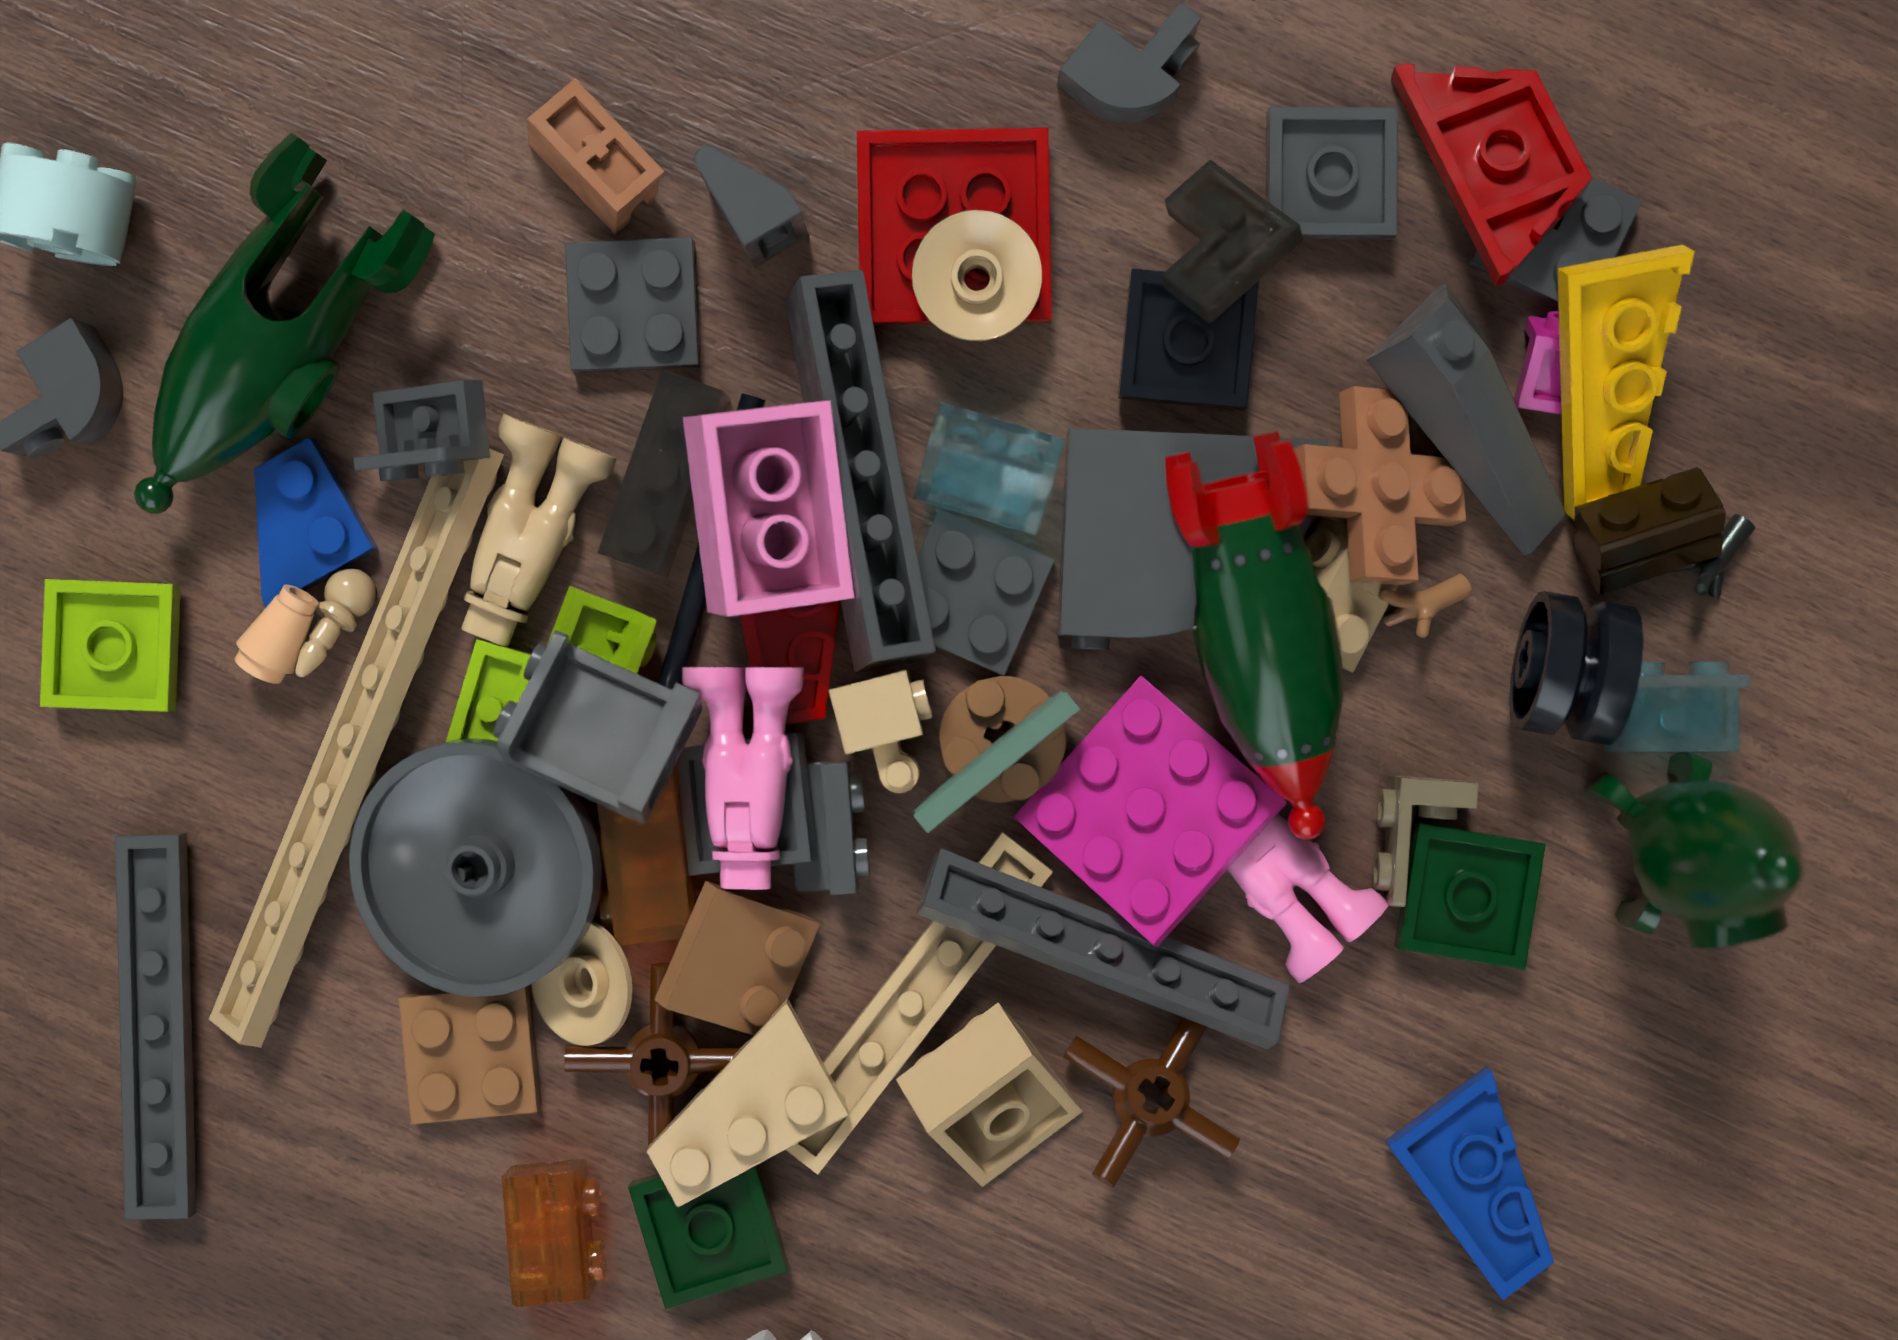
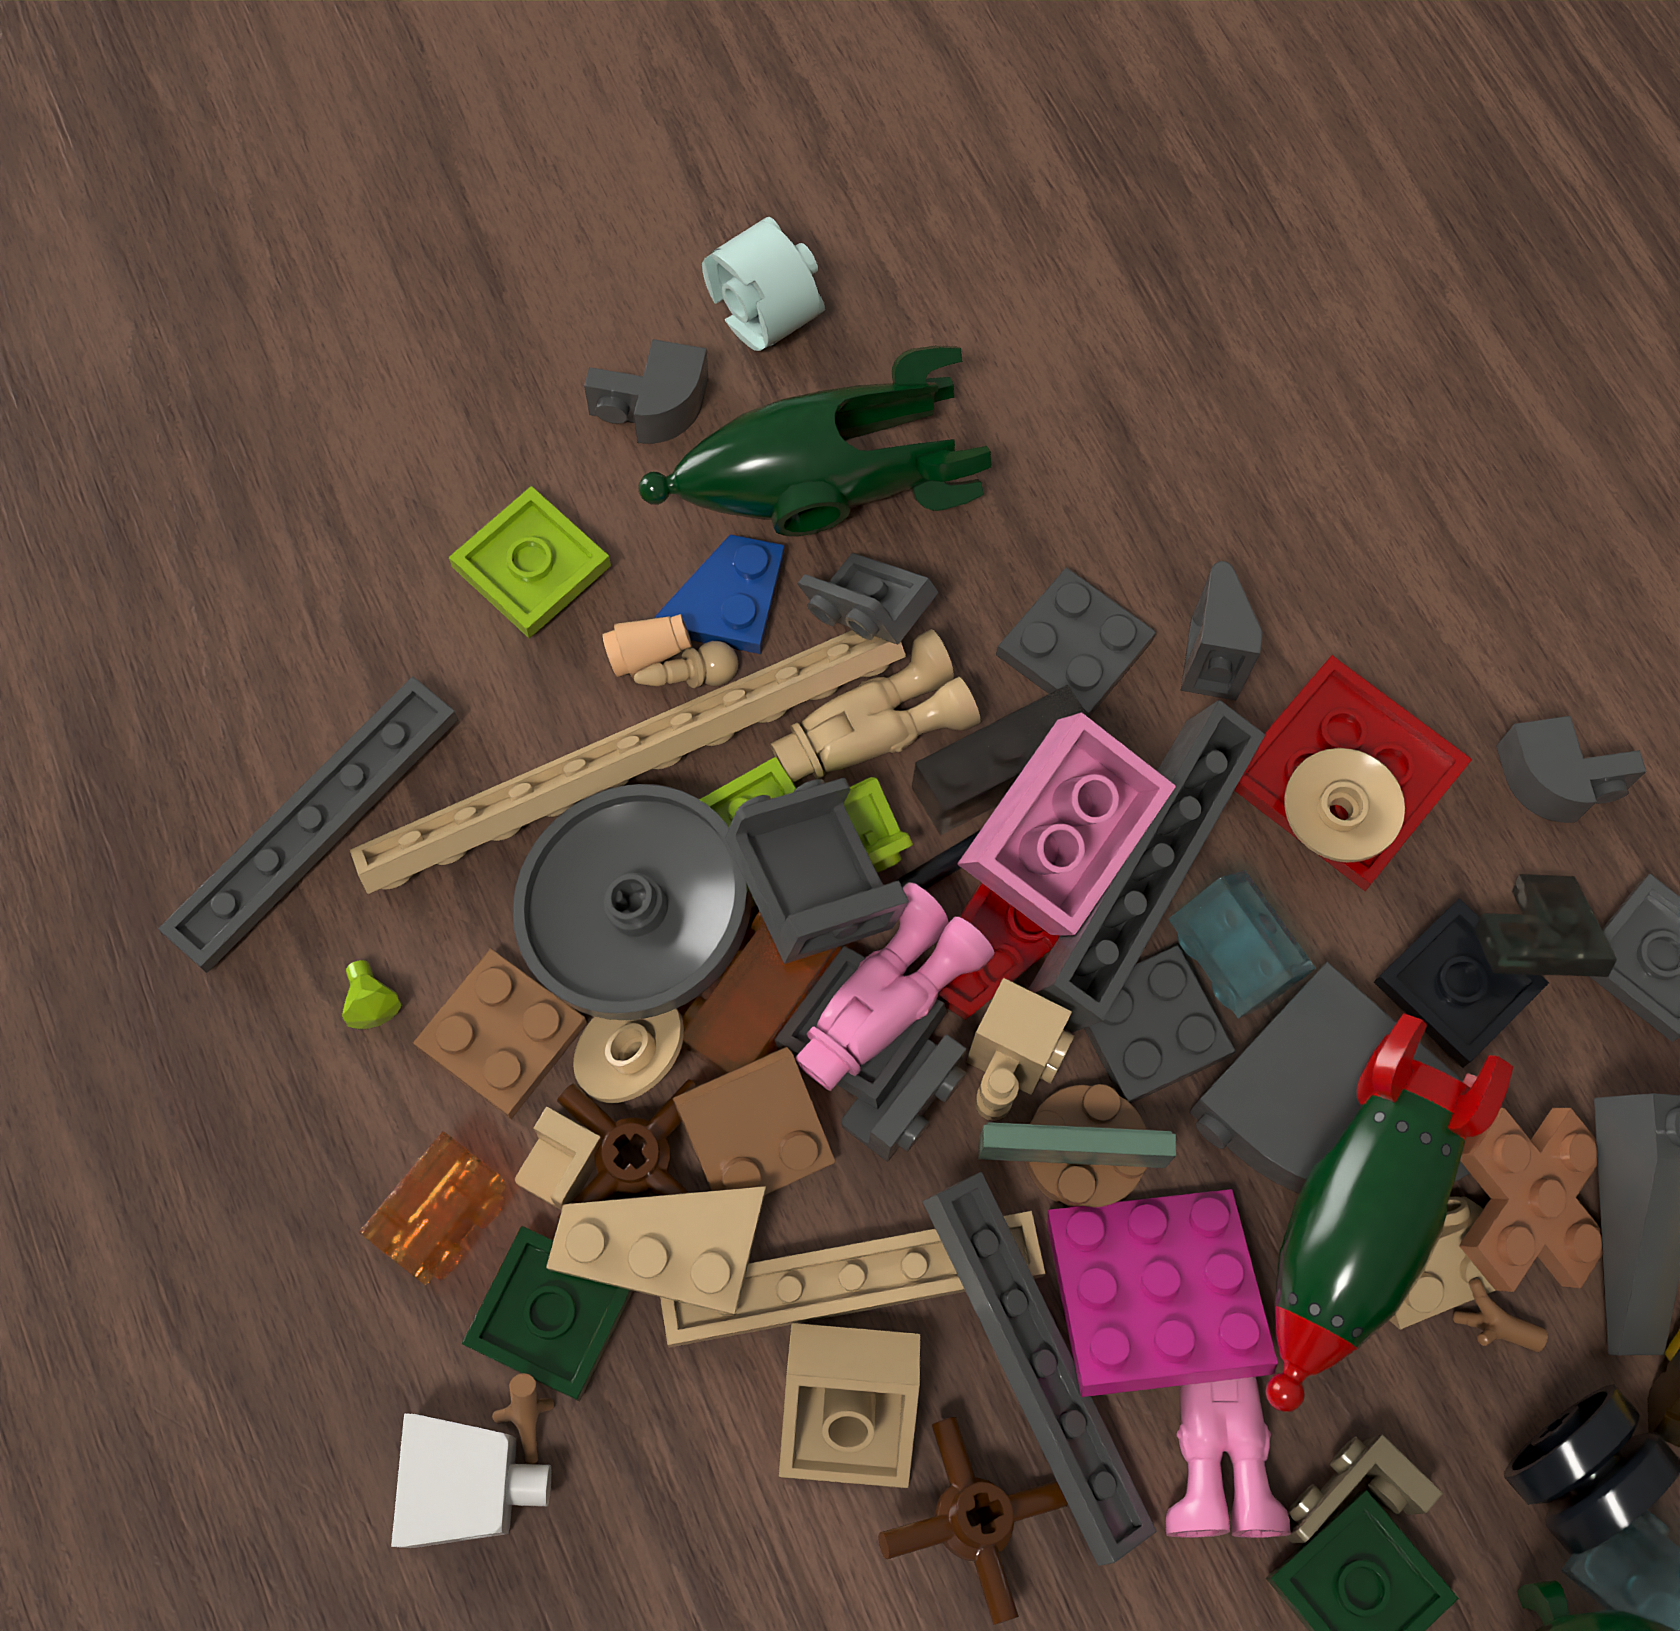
camera: 40 degrees right, 20 degrees down
(340, 1121) = (368, 1000): none -> lime rock
(593, 155) = (1134, 529): nougat hinge -> none
(609, 1111) = (559, 1159): none -> tan panel
(756, 1312) = (524, 1412): none -> medium nougat bar

